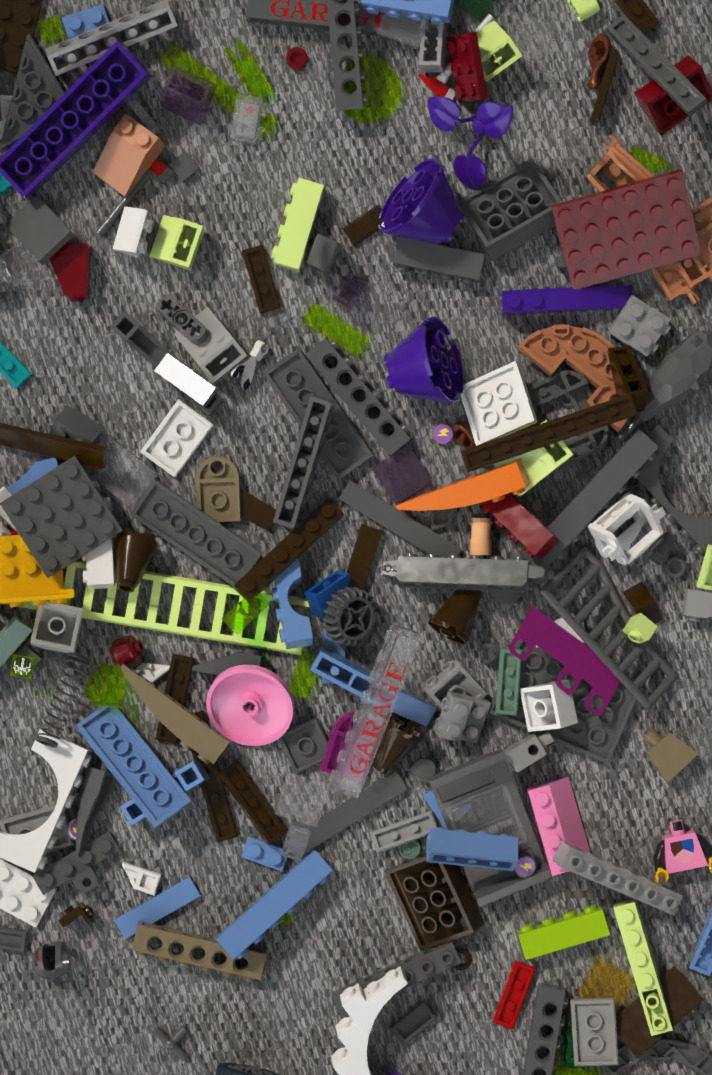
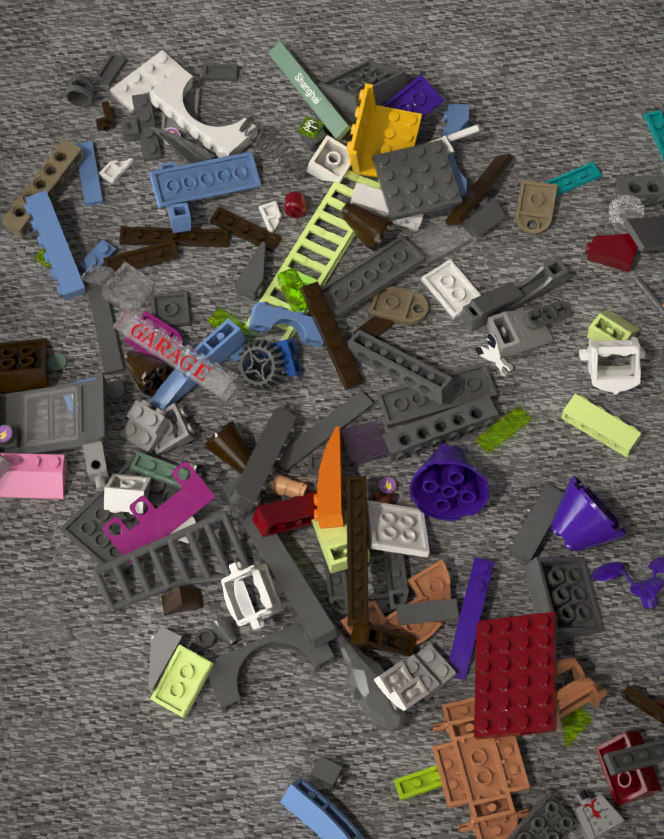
camera: 110 degrees right, 25 degrees down
(39, 374) = (535, 205): none -> dark tan tile
(107, 687) = (271, 185): clear neon green slope -> none
(133, 232) = (630, 301): white slope -> none
(178, 719) = (229, 221): dark tan slope -> none
(219, 231) = (614, 377): none -> white animal
(250, 705) = (218, 273): bright pink dish -> none
(261, 279) = (563, 386): dark brown tile -> none
(324, 254) = (566, 430): dark grey piece -> none
(349, 291) = (531, 446): clear purple slope -> none
(363, 556) = (305, 395): dark brown tile -> none
(364, 226) = (584, 473): dark brown tile -> none
(403, 832) = (71, 358): light grey tile -> none
(472, 849) = (35, 394): medium blue brick -> none
(579, 344) = (427, 612): none -> dark grey tile
(639, 628) = (162, 585): yellowish green plate -> none
(668, 753) = (48, 580): dark tan torso -> none
(675, 342) = (401, 687): none -> white slope

